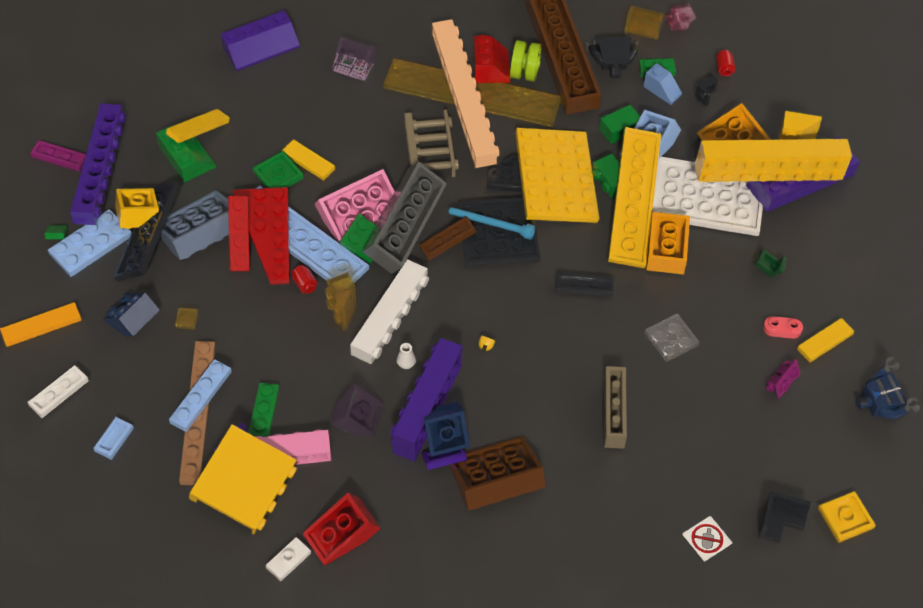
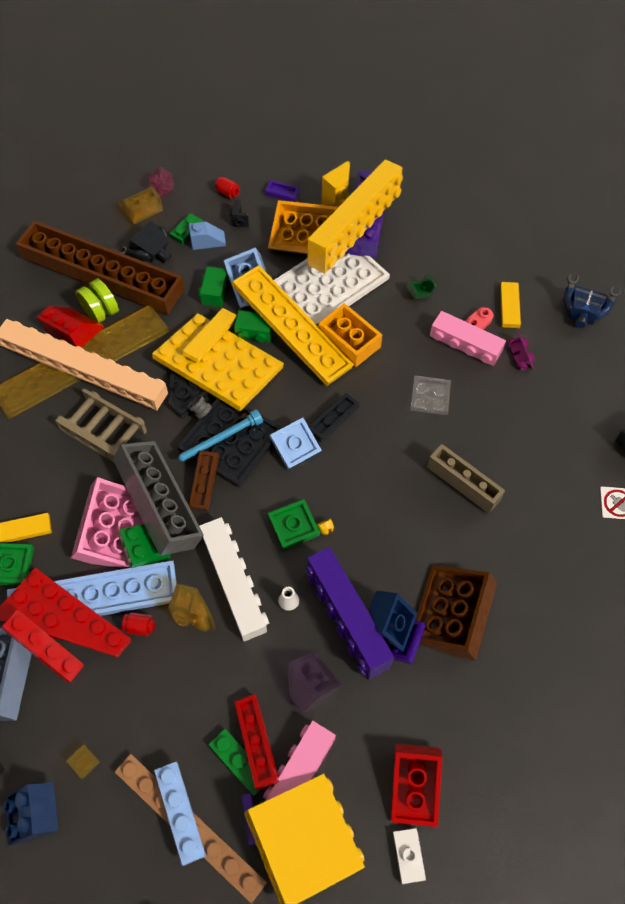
camera: 50 degrees left, 5 degrees up
(284, 407) = (256, 742): none -> red plate
(468, 320) = (293, 524): none -> green plate
(503, 190) = (199, 406): none -> dark grey wheel
(534, 273) = (295, 443): none -> light blue plate
(570, 151) = (209, 335): none -> yellow tile
(754, 328) = (467, 338): none -> bright pink brick
(766, 102) = (282, 191): none -> dark purple tile

